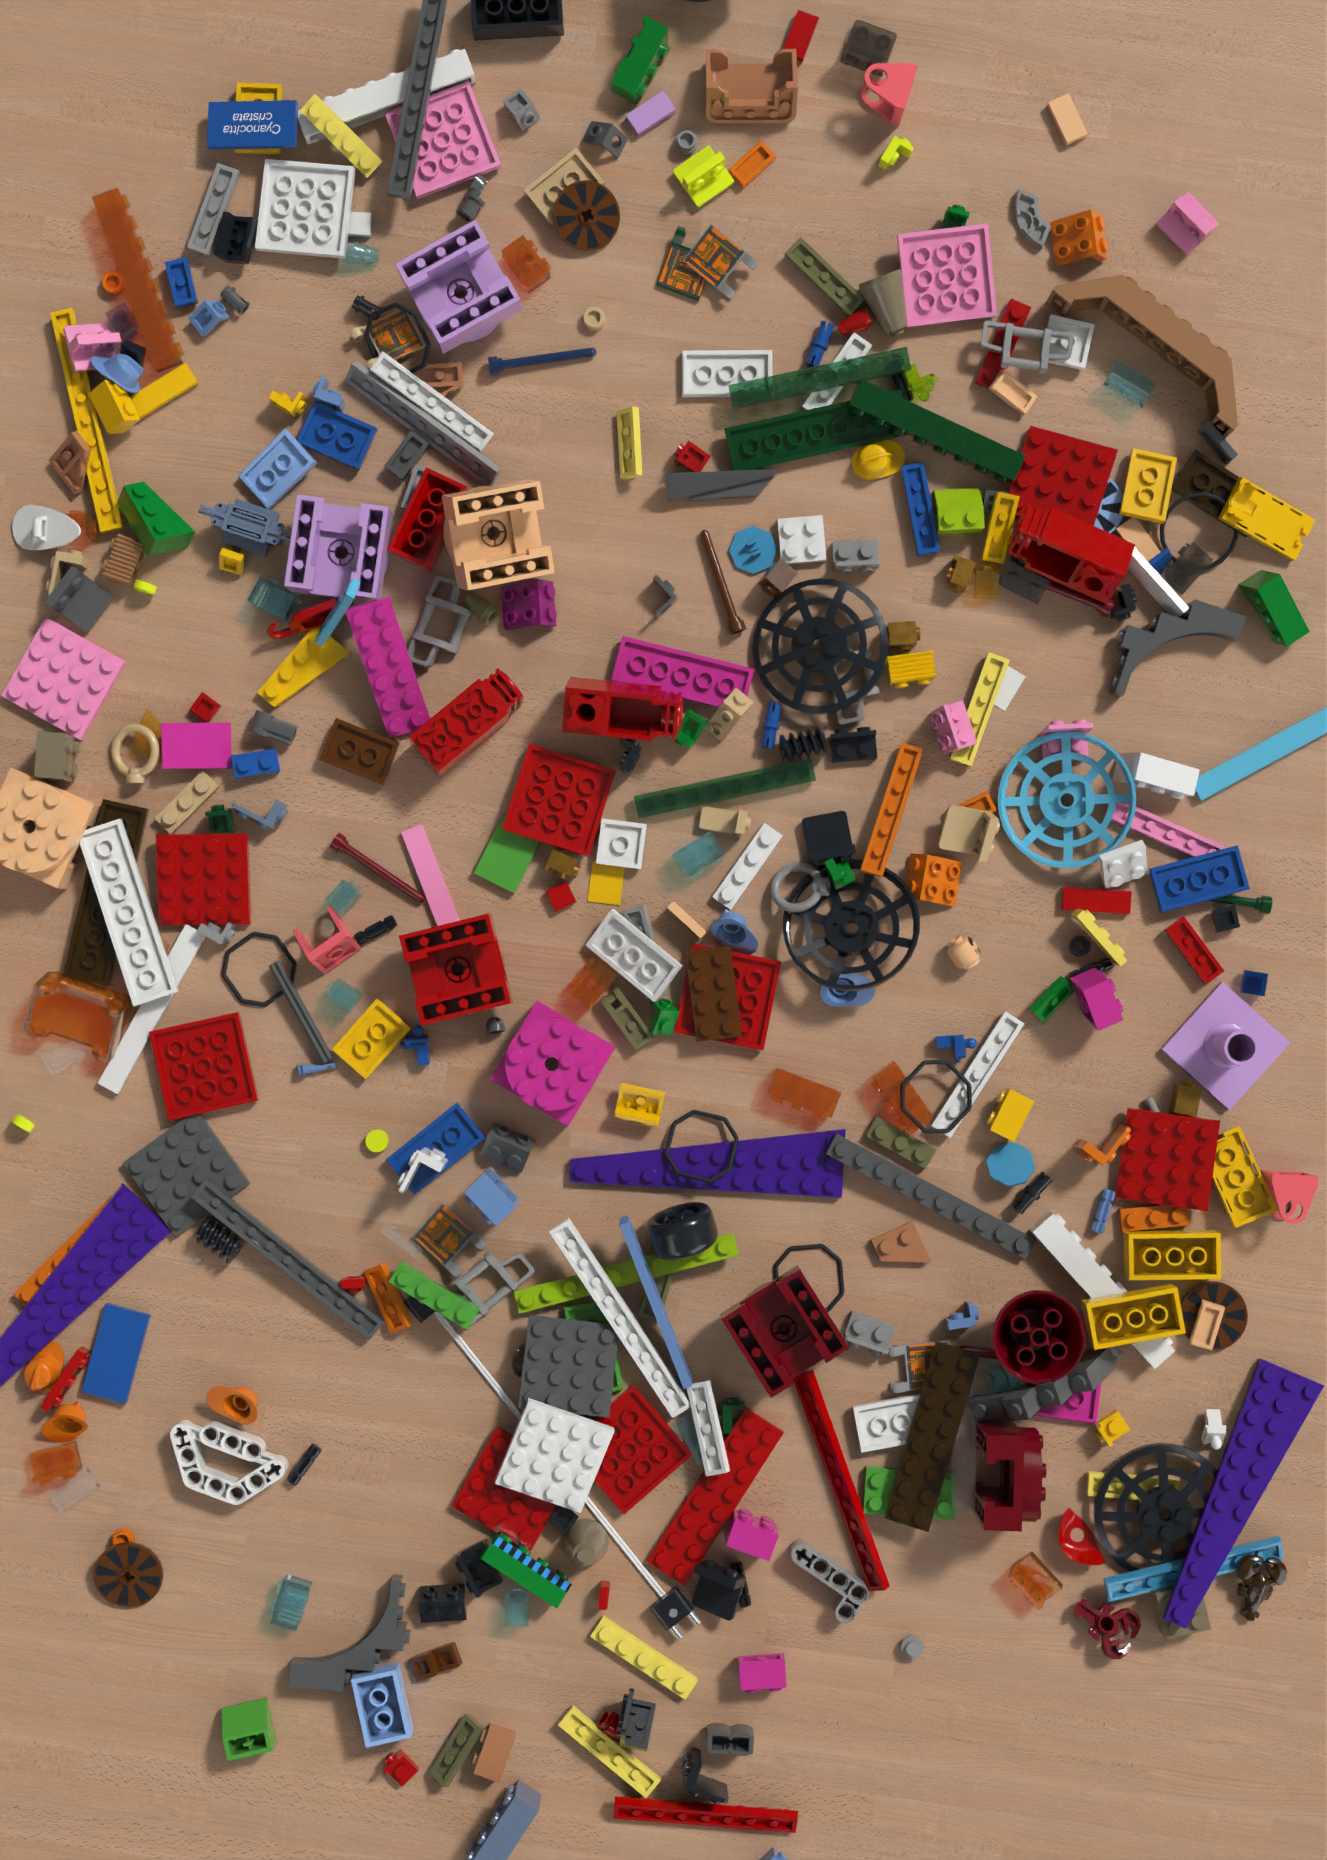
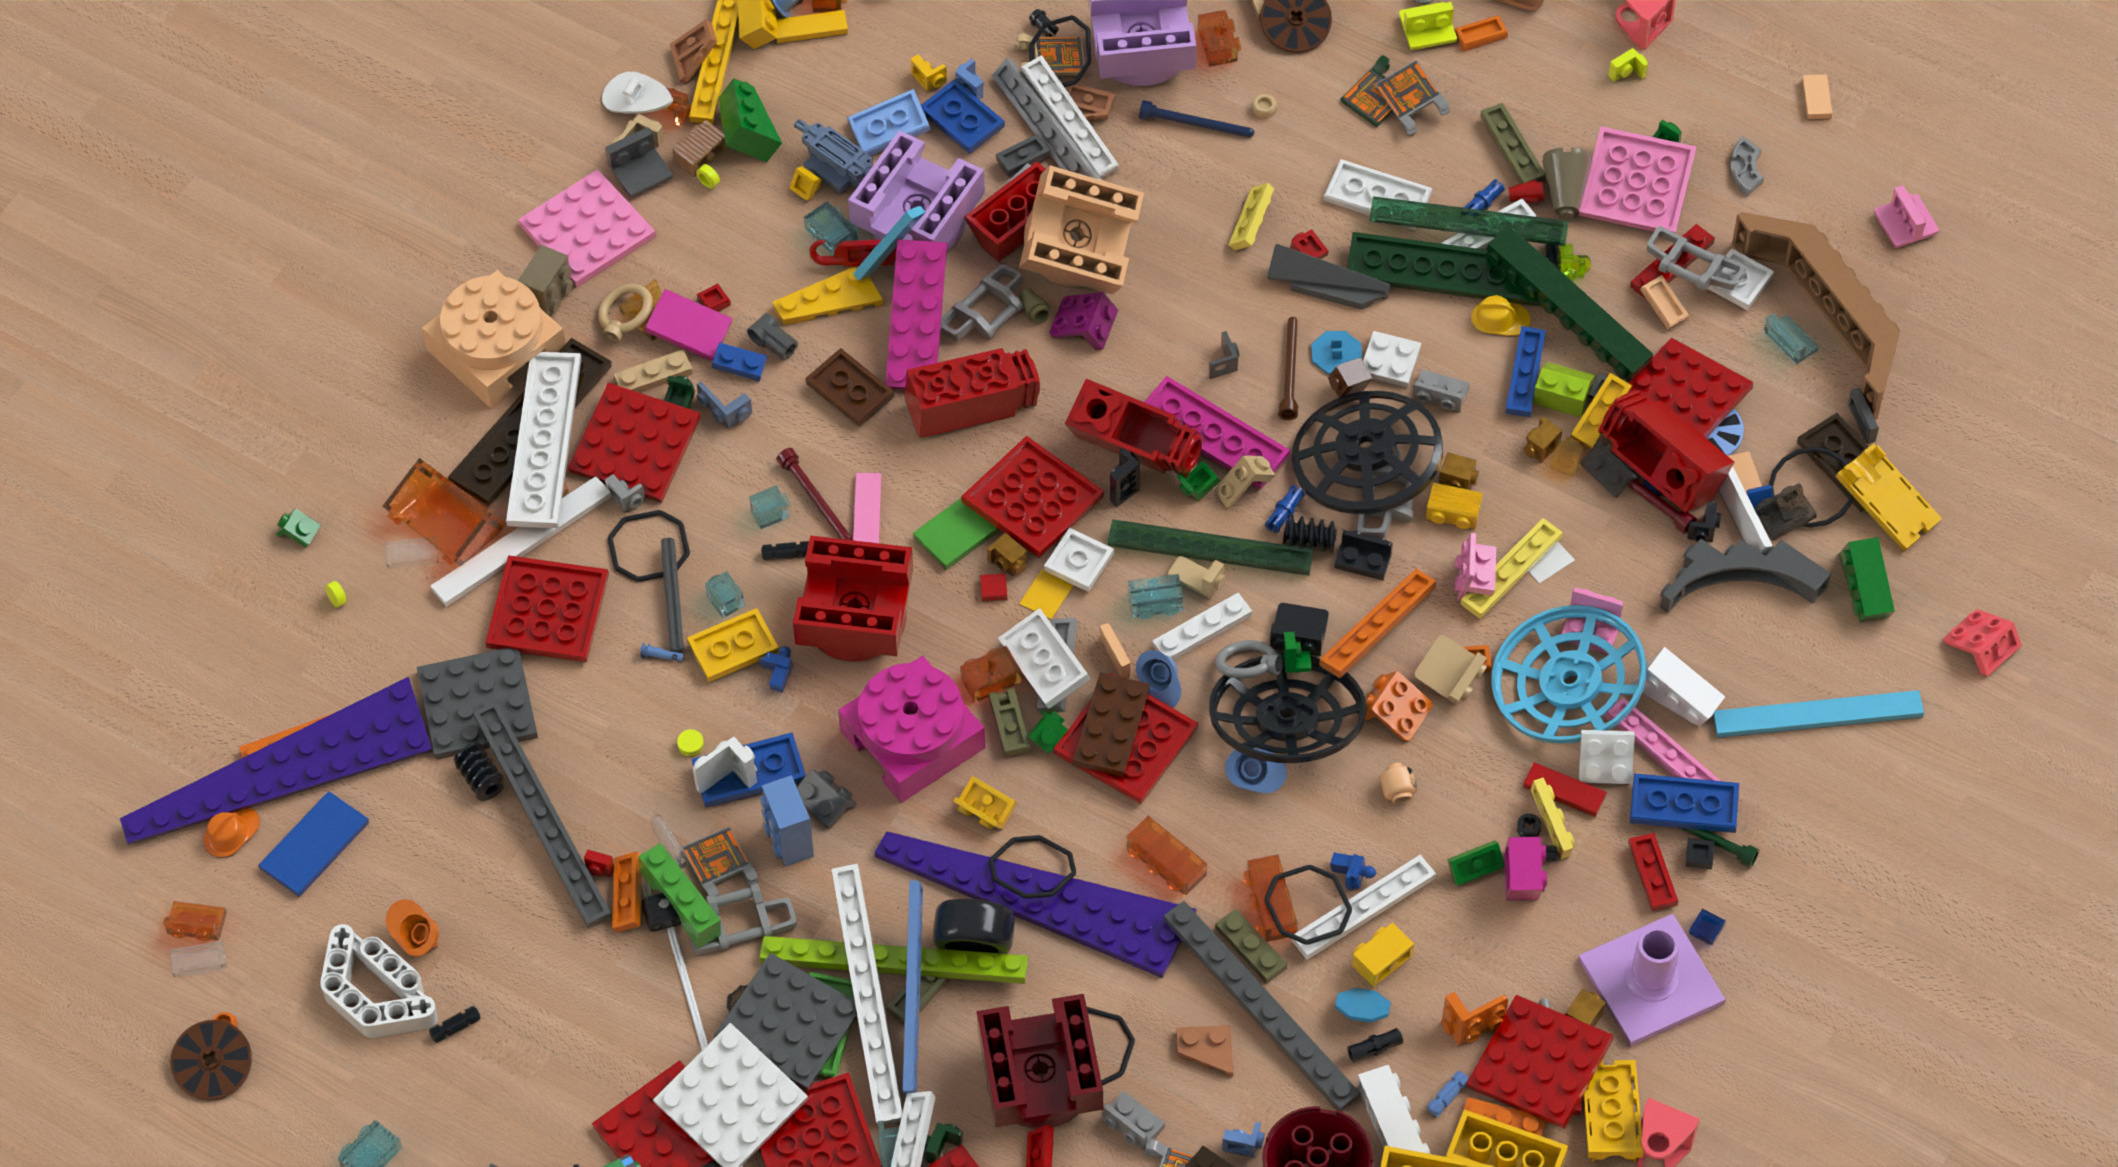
camera: 25 degrees right, 30 degrees down
(65, 1423) = (225, 885): orange piece -> none
(66, 1379) = (249, 845): red plate -> none
(333, 950) = (722, 536): coral hose -> none
(495, 1025) = (862, 676): dark grey hinge -> none
(1079, 238) = (1789, 192): orange bracket -> none
(1148, 486) = (1773, 428): yellow plate -> none

